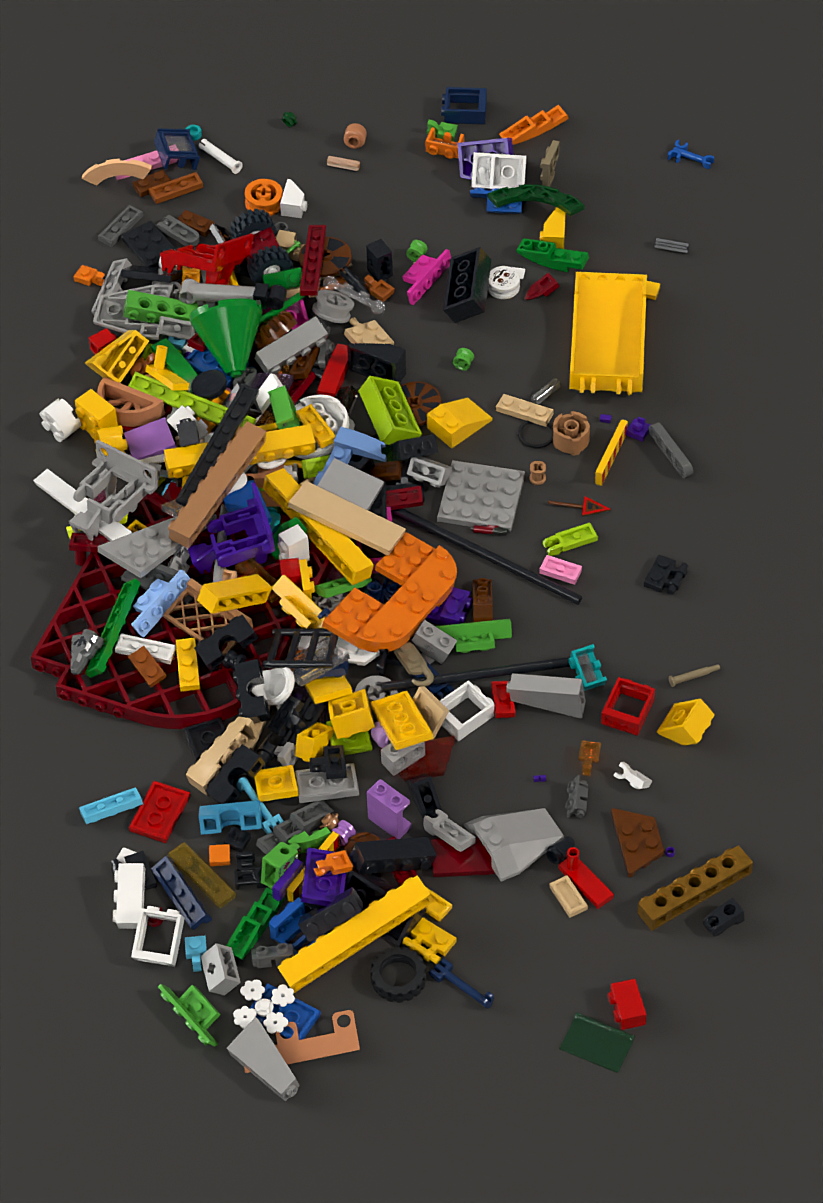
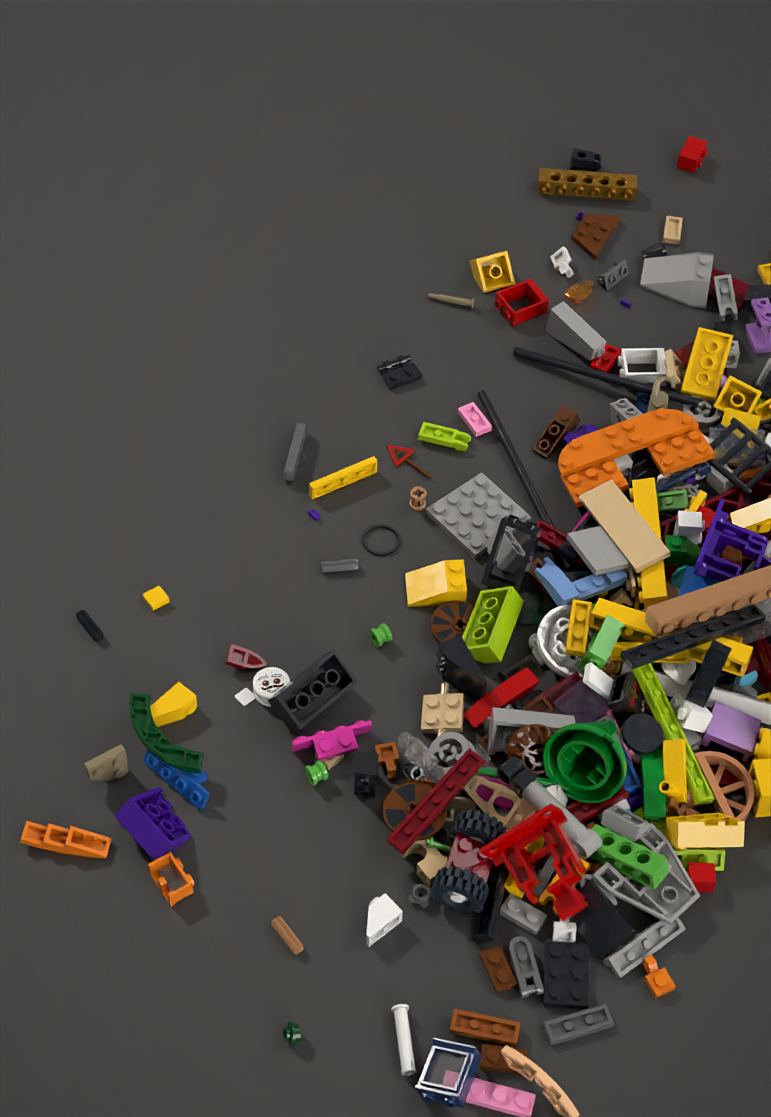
camera: 145 degrees left, 0 degrees up
(195, 132) = (404, 1101): teal tile -> none
(263, 190) = (401, 955): orange wheel -> none
(287, 278) = (472, 799): green slope -> none
(298, 604) = (717, 487): yellow bracket -> none
(355, 136) = (247, 956): nougat head -> none
(442, 128) = (152, 901): bright green plate -> none
(464, 95) = (90, 897): dark blue window -> none
(478, 634) = (588, 408): bright green bracket -> none
(490, 529) = (507, 491): piece -> none
(498, 170) = (163, 794): white slope -> none
(524, 410) = (373, 561): tan plate -> none
(548, 255) = (201, 680): green slope -> none
(571, 433) = (360, 507): medium nougat brick -> none
(585, 879) = (652, 228): red piece -> none
(587, 667) = (528, 336): teal window -> none
(597, 1042) = (728, 155): clear green piece -> none
(608, 332) = (241, 568): yellow hinge -> none
(638, 429) = (299, 487): dark purple tile -> none

